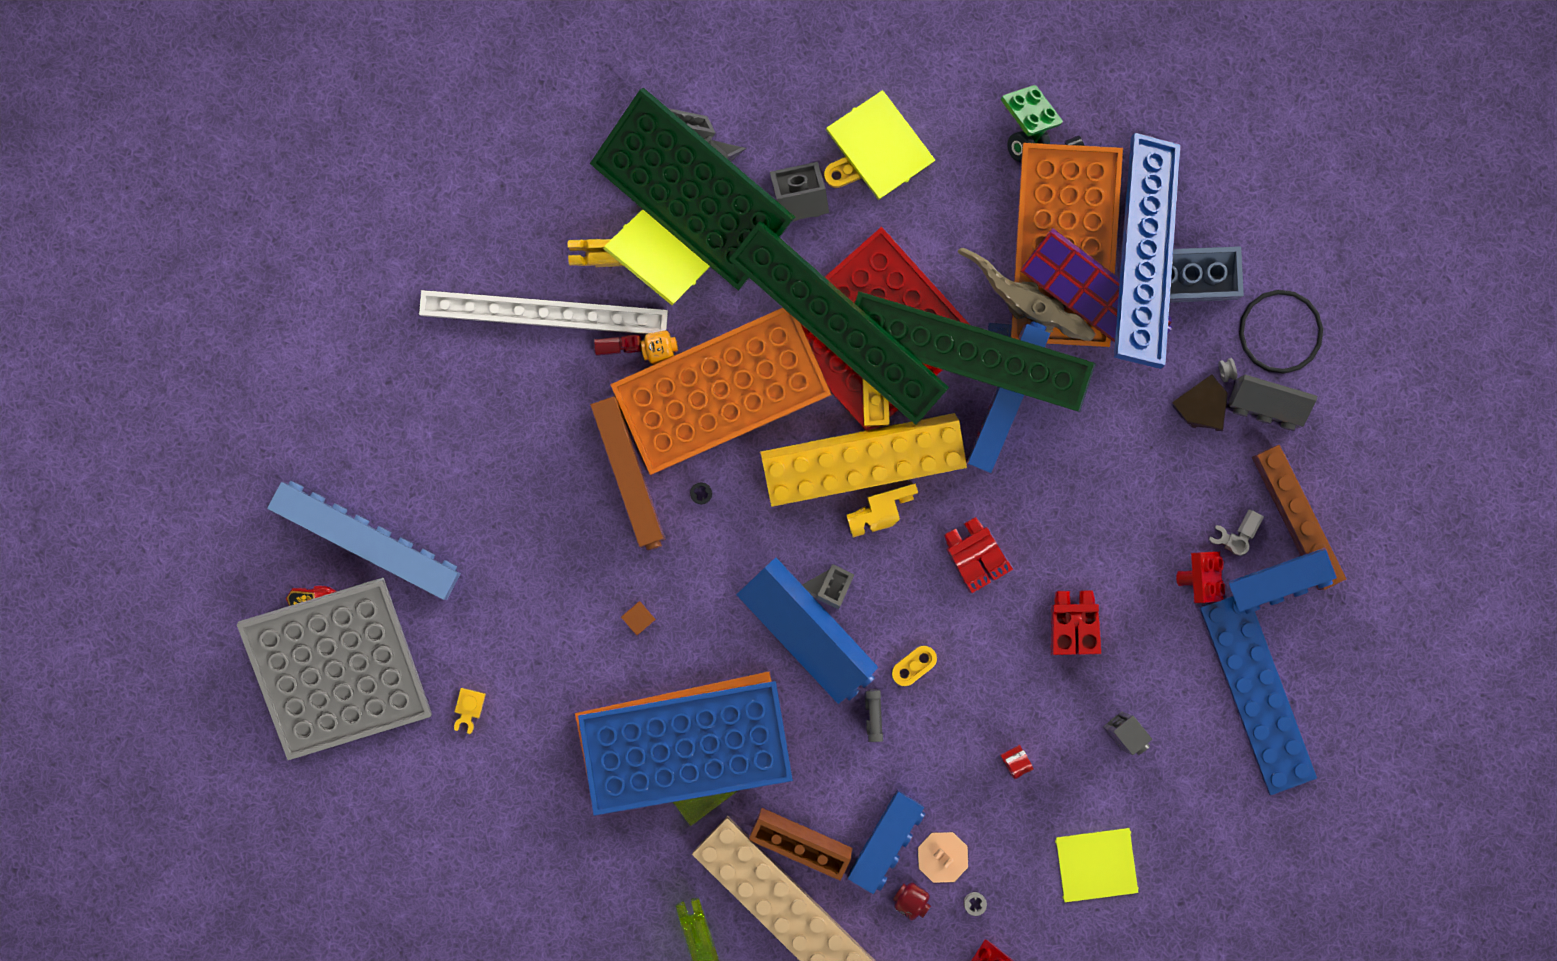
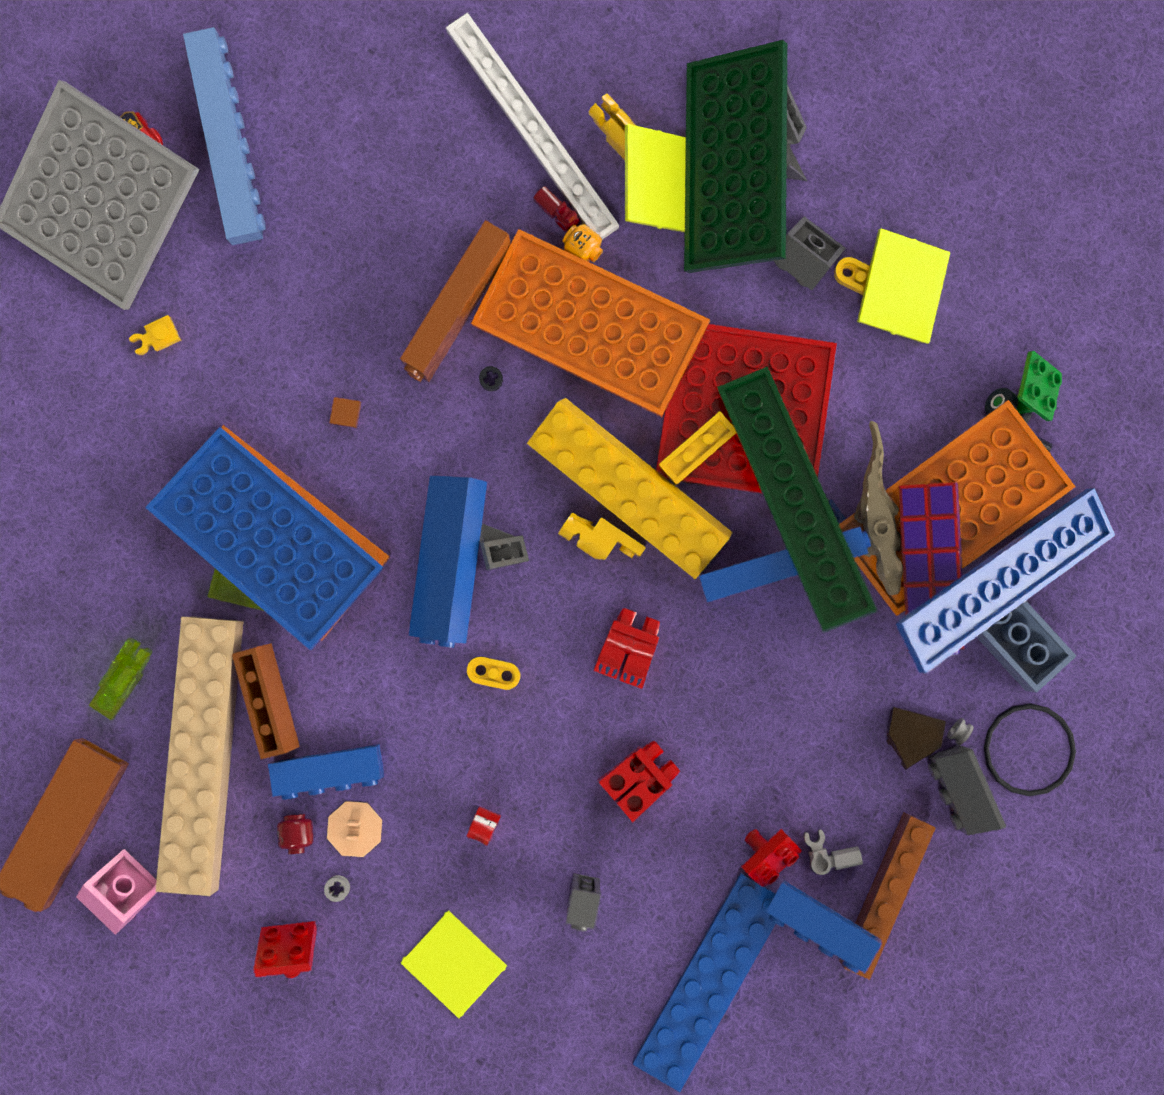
camera: 50 degrees right, 0 degrees up
(838, 323) = (726, 369): dark green plate -> none
(874, 725) = (418, 678): dark grey plate -> none

